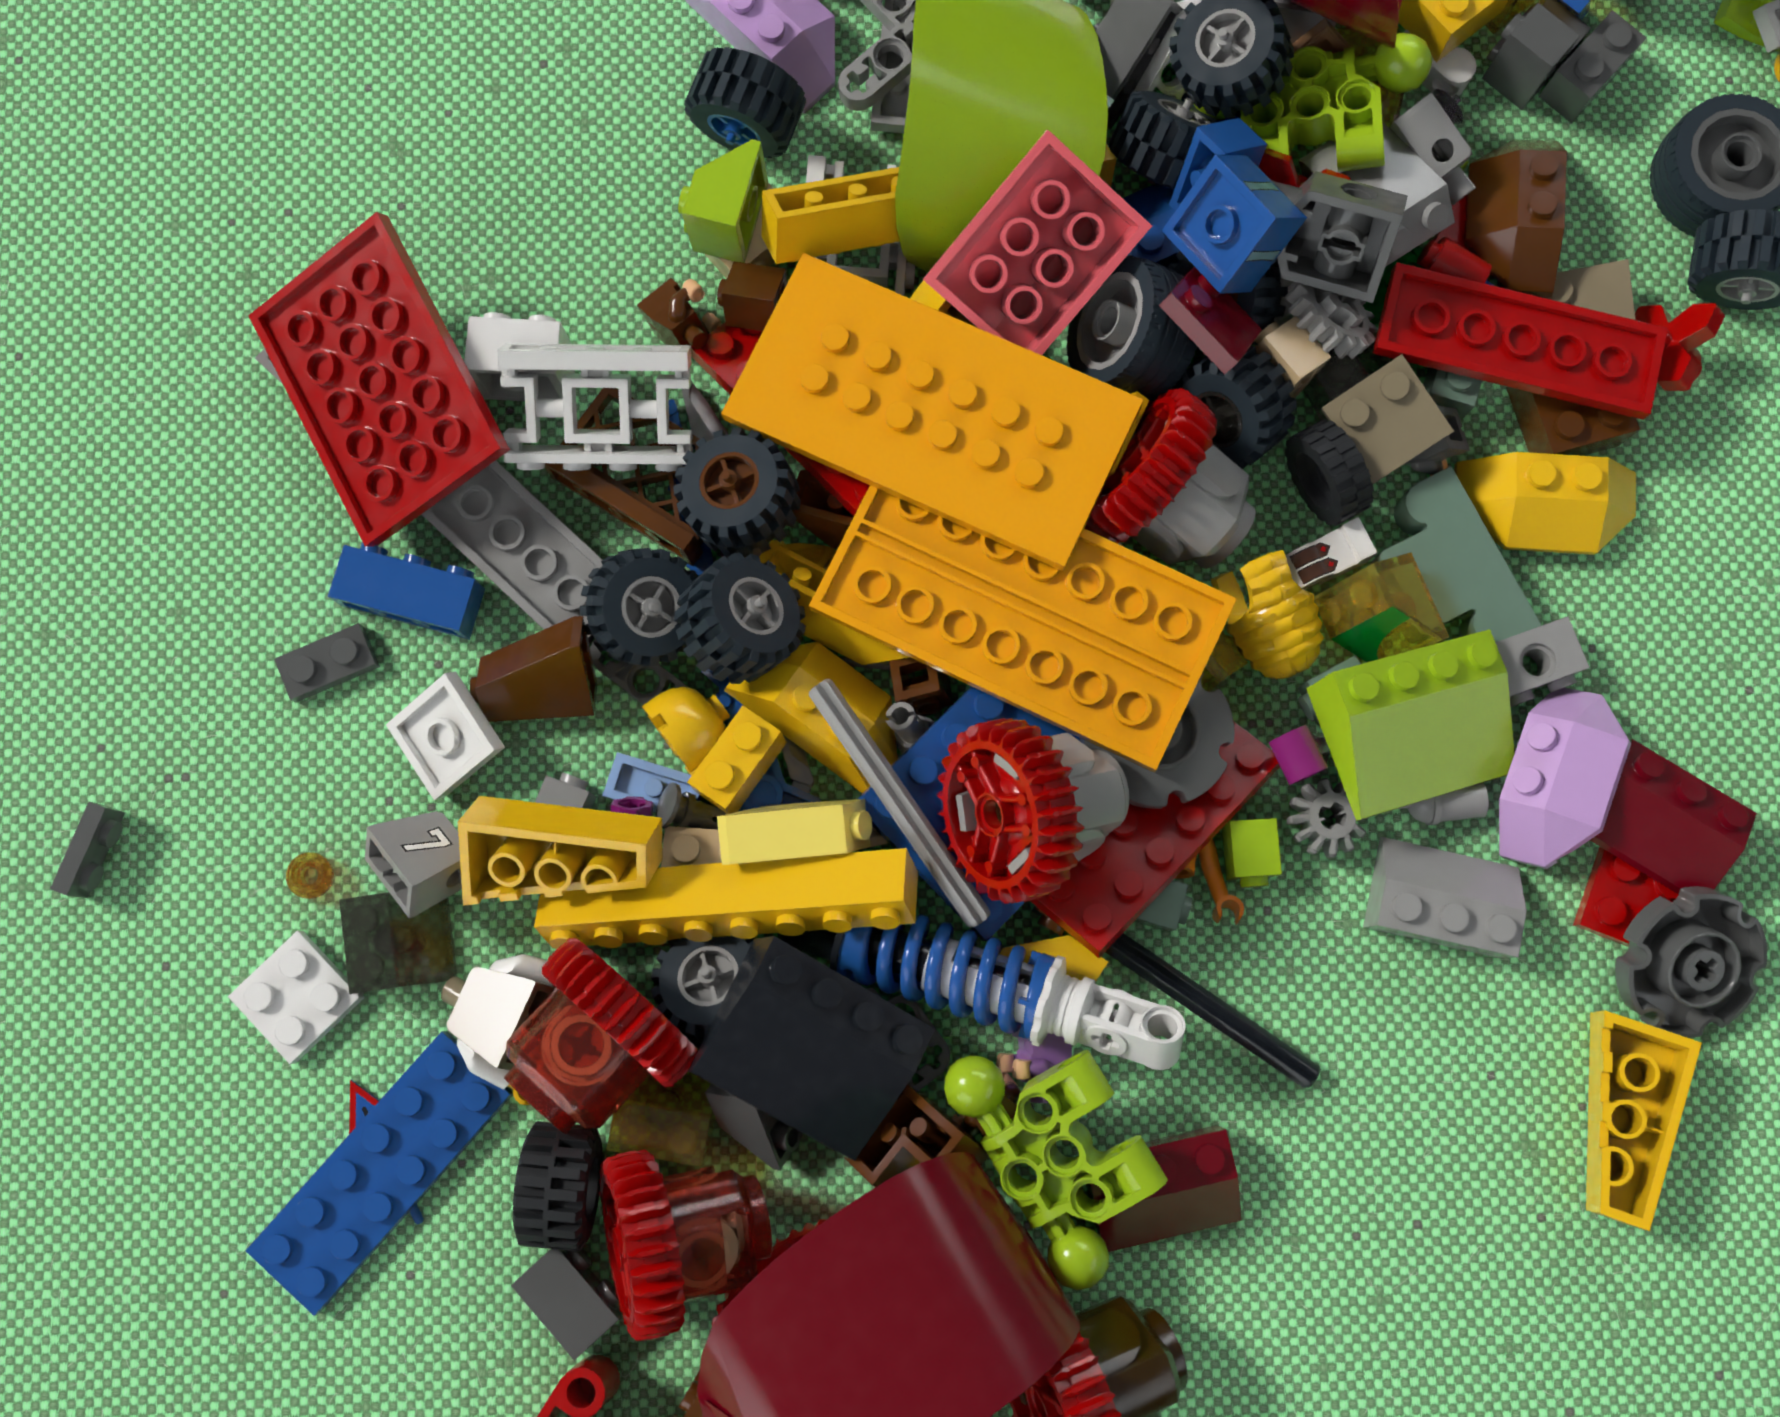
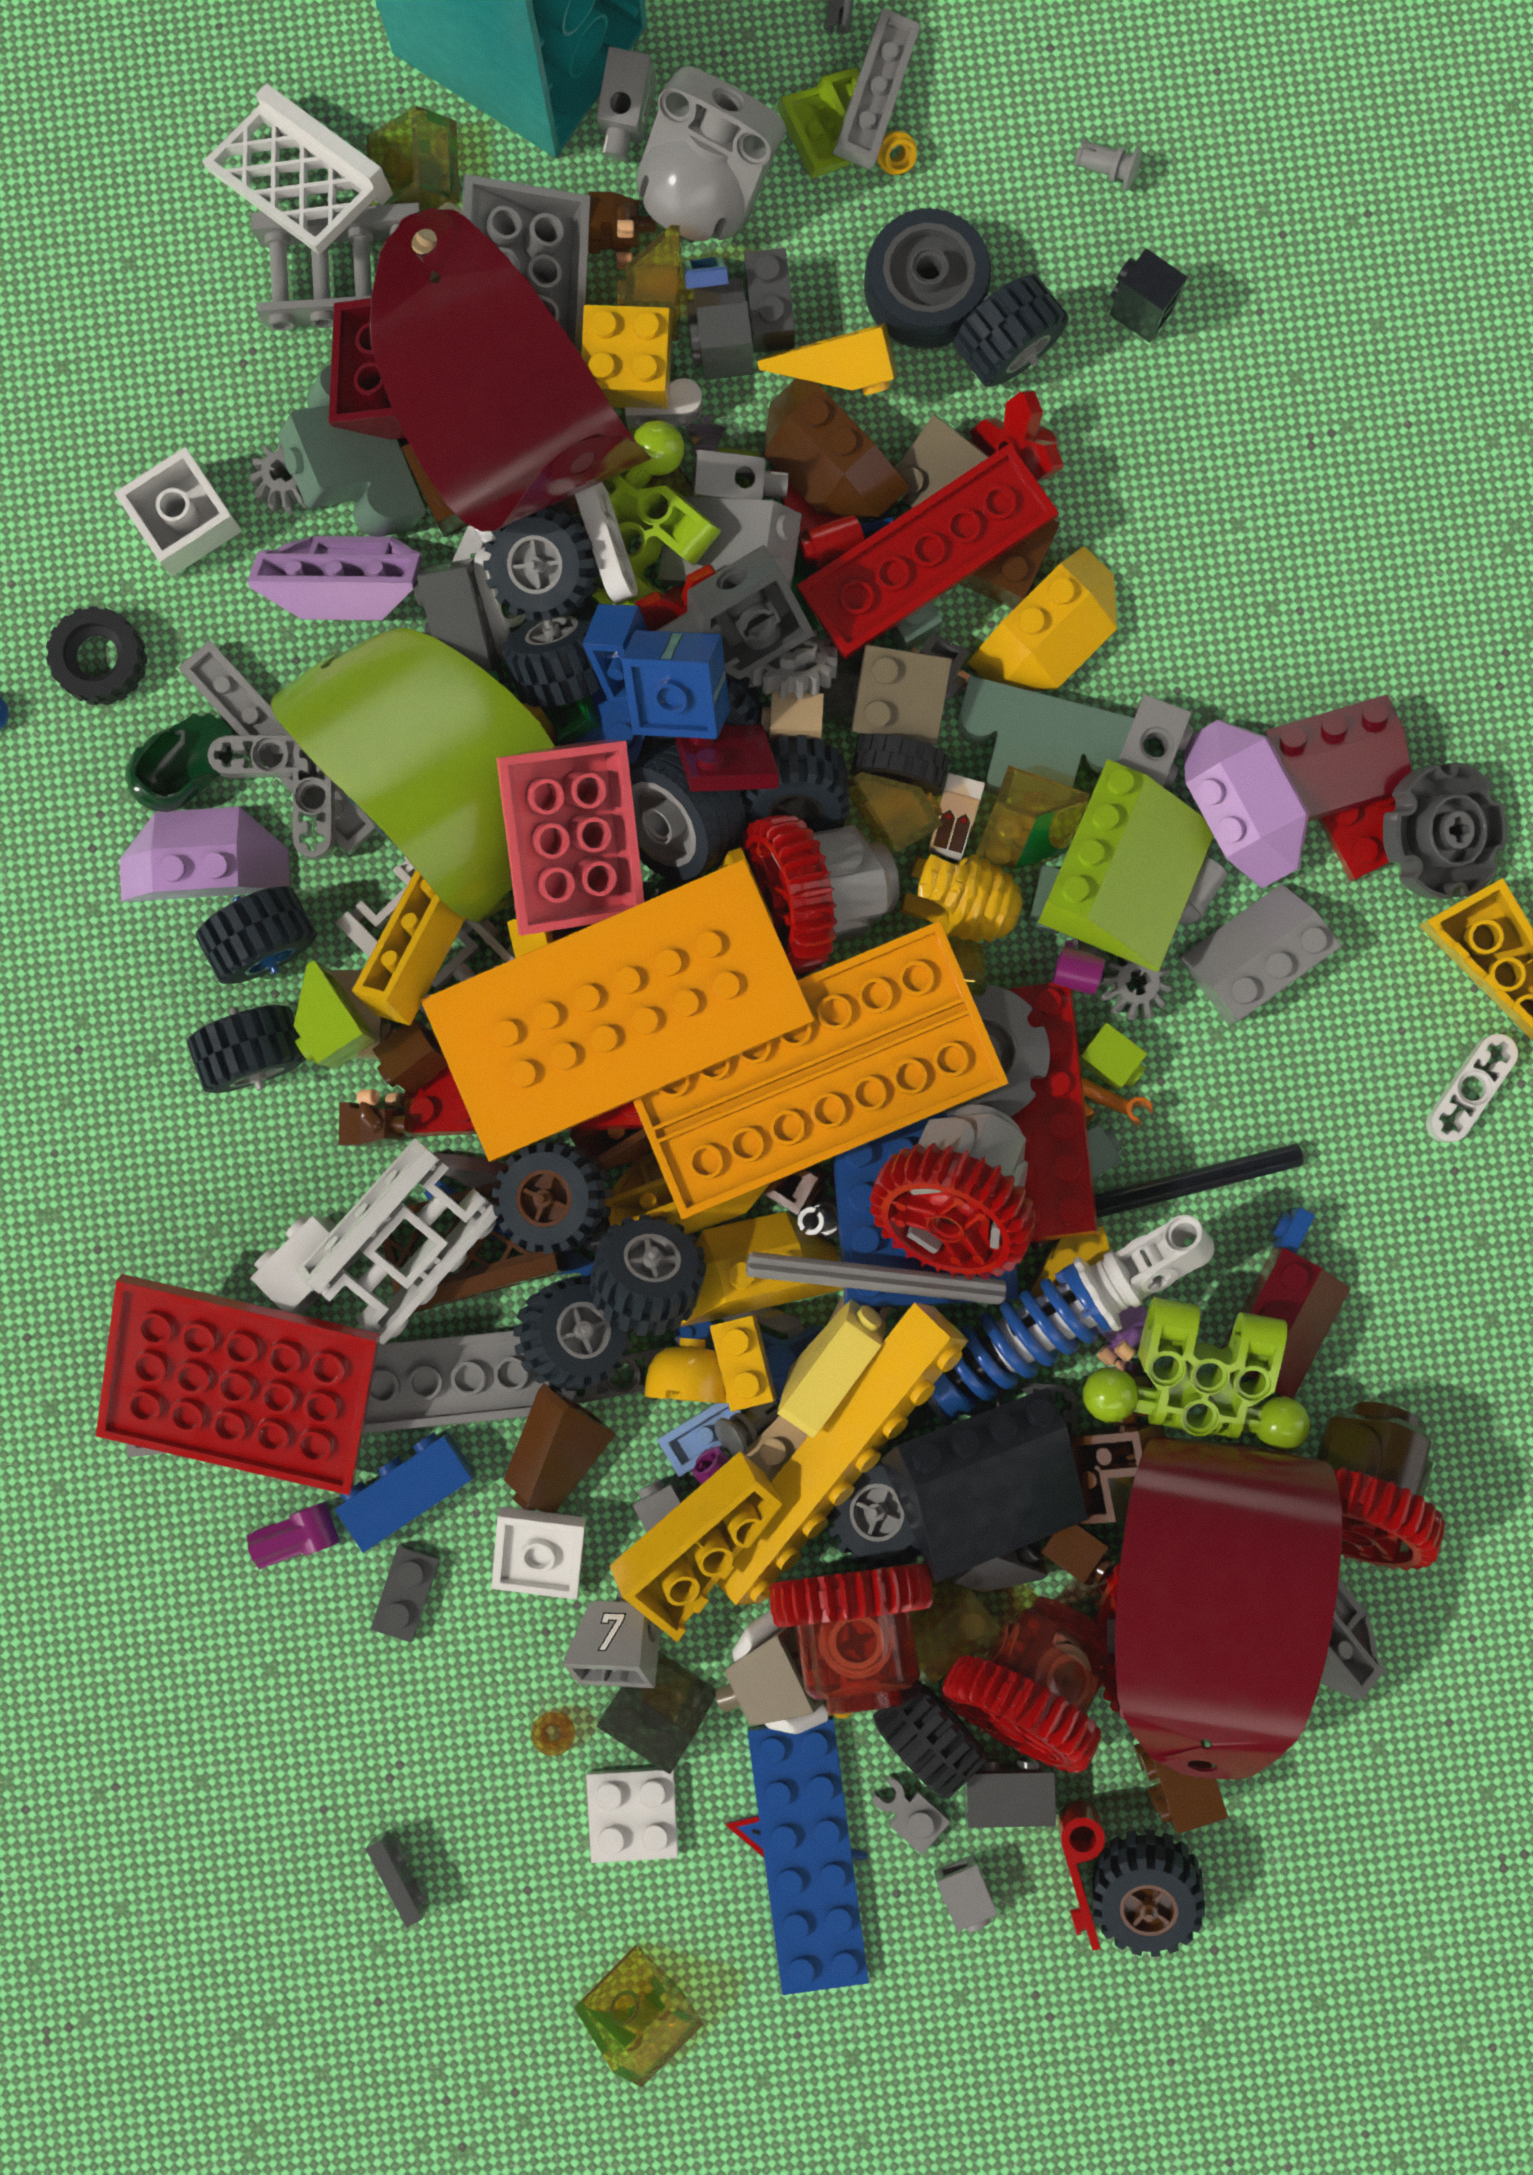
camera: 50 degrees left, 5 degrees up
(128, 1145) = (638, 2017): none -> clear yellow slope
(306, 540) = (303, 1532): none -> magenta piece
(454, 1334) = (965, 1894): none -> light grey brick
(485, 1236) = (914, 1818): none -> light grey plate
(645, 167) = (245, 1048): none -> black wheel
(820, 1181) = (1081, 1554): none -> reddish brown brick
(1138, 192) = (574, 720): none -> green tile
(1247, 1124) = (1291, 1228): none -> blue plate
(1290, 496) = (894, 810): none -> clear yellow slope
(1295, 81) = (607, 543): none -> white beam
(1532, 1160) = (1480, 1056): none -> white beam
(1607, 156) = (844, 361): none -> yellow slope

